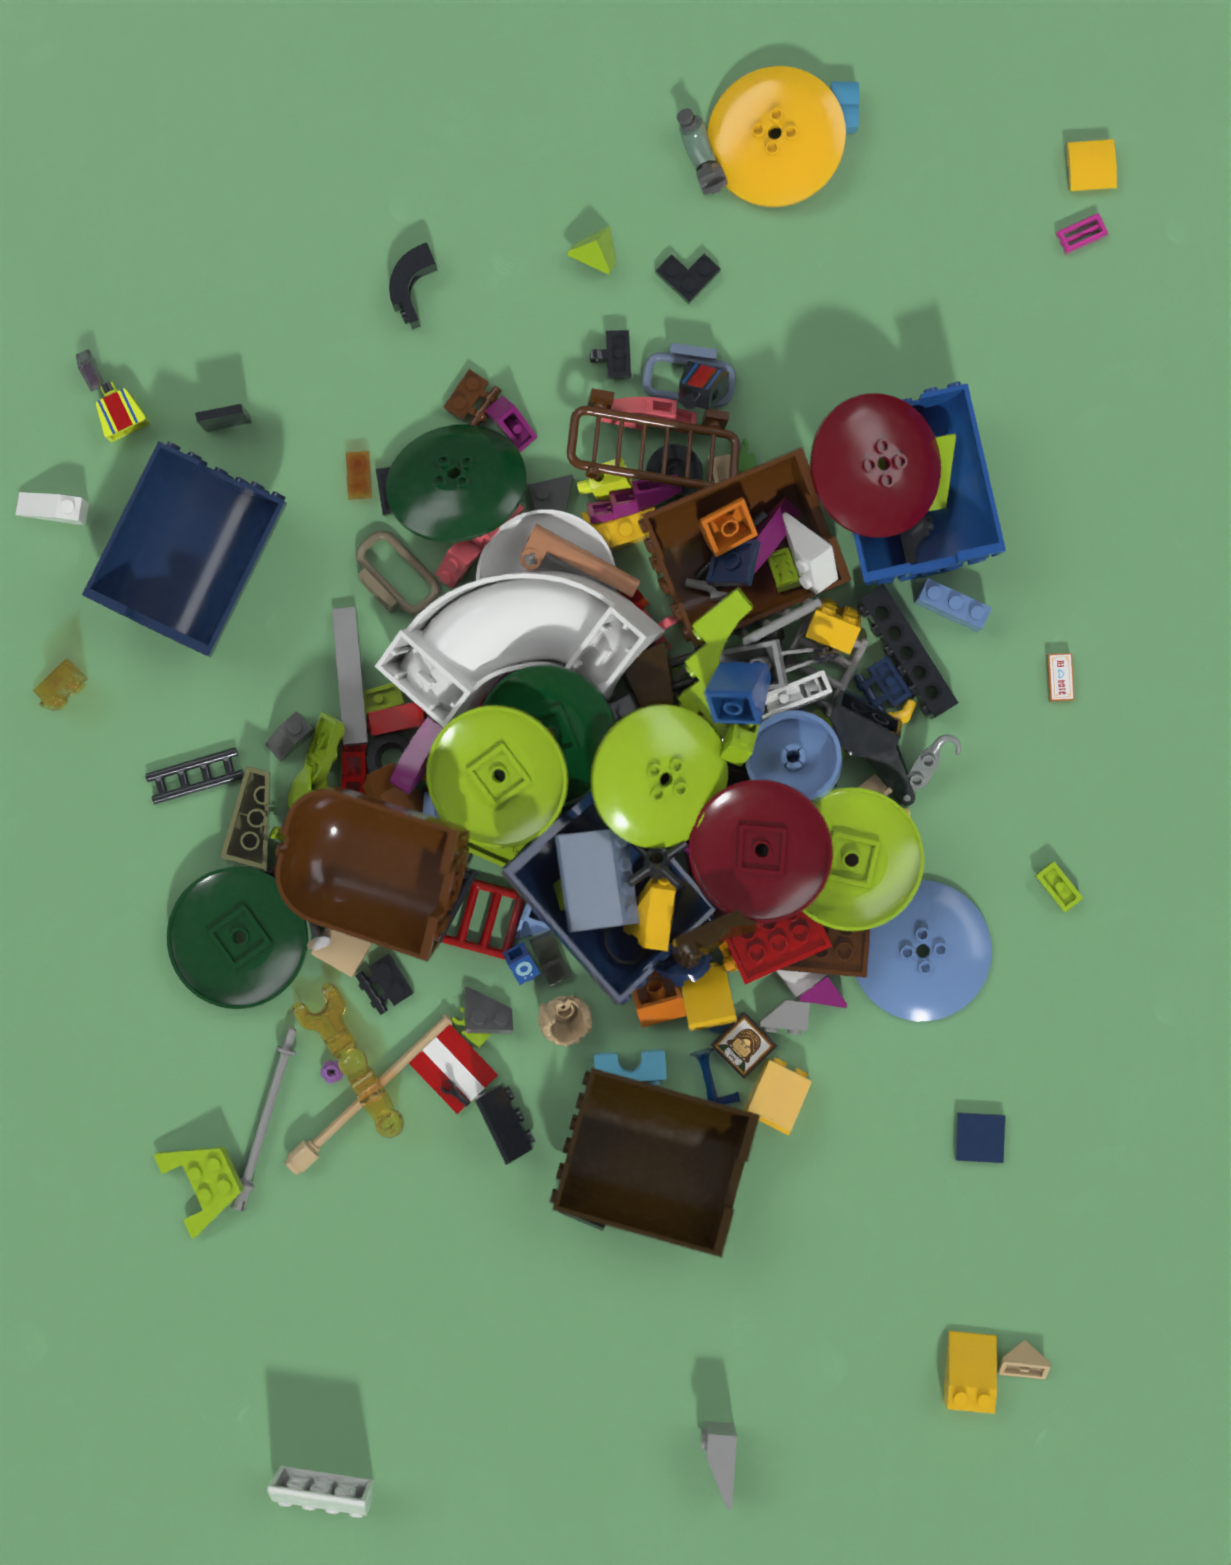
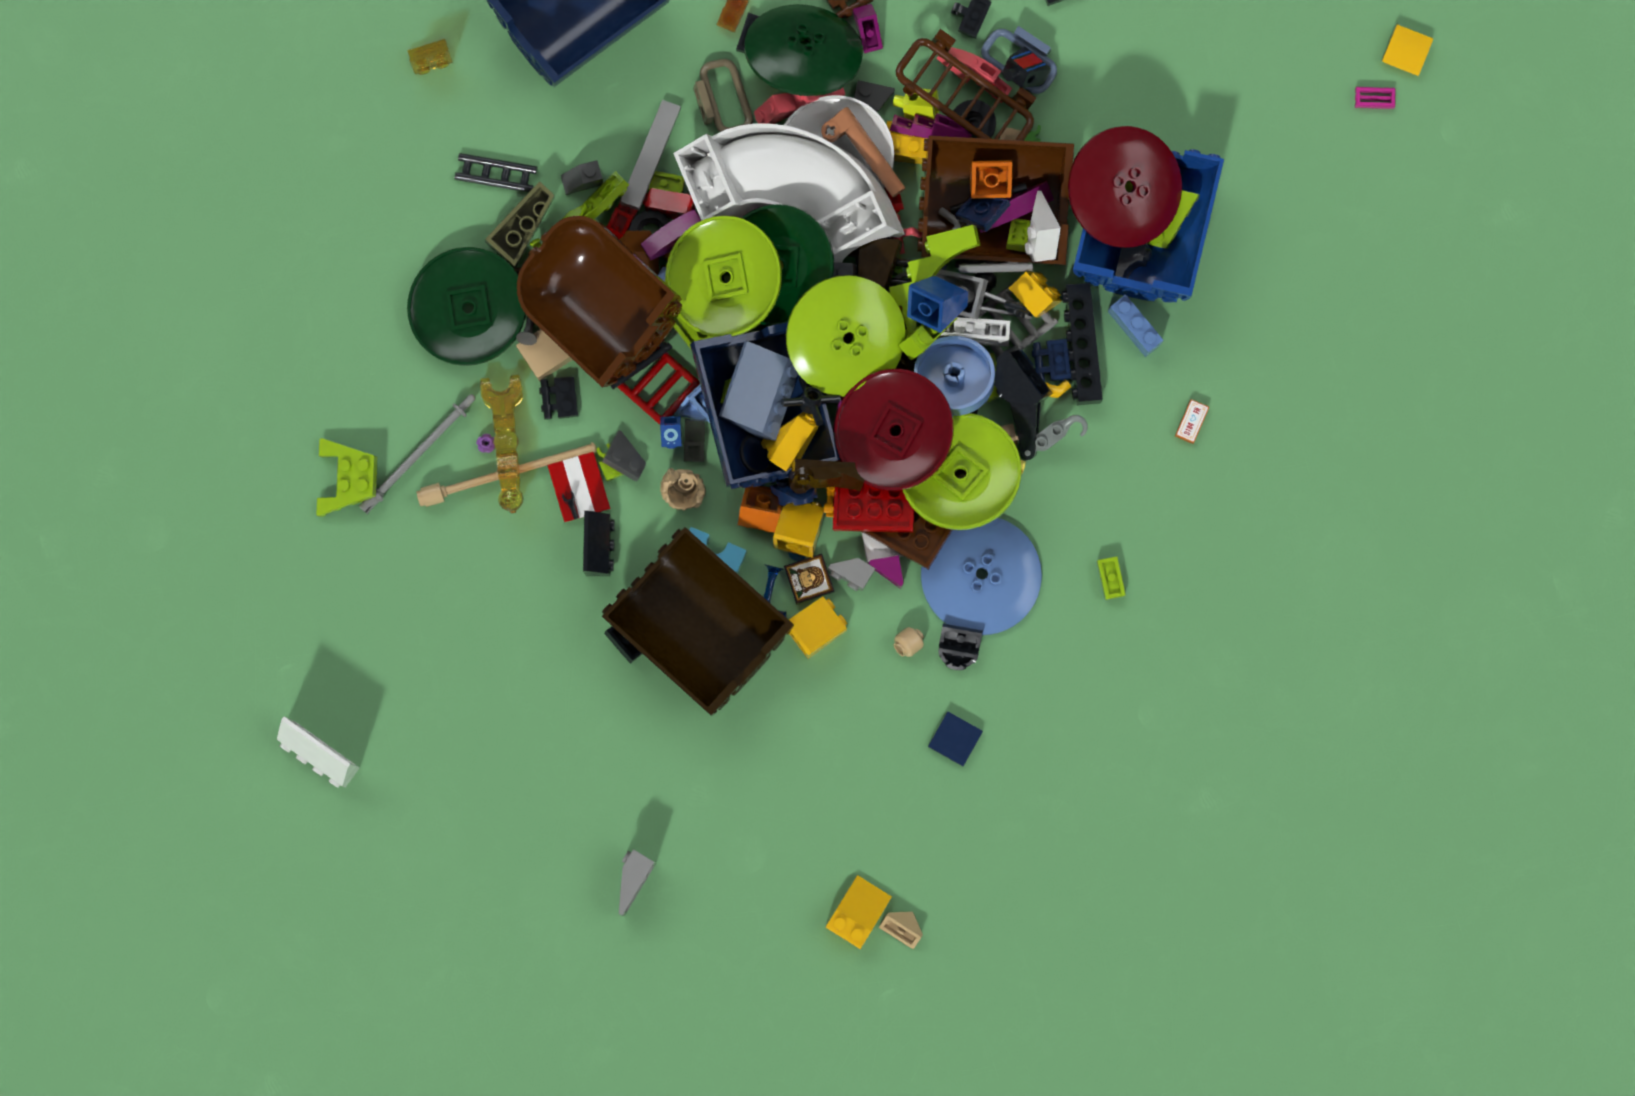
camera: 25 degrees right, 5 degrees down
(882, 1061) = (908, 642): none -> tan head
(936, 1038) = (959, 646): none -> black slope

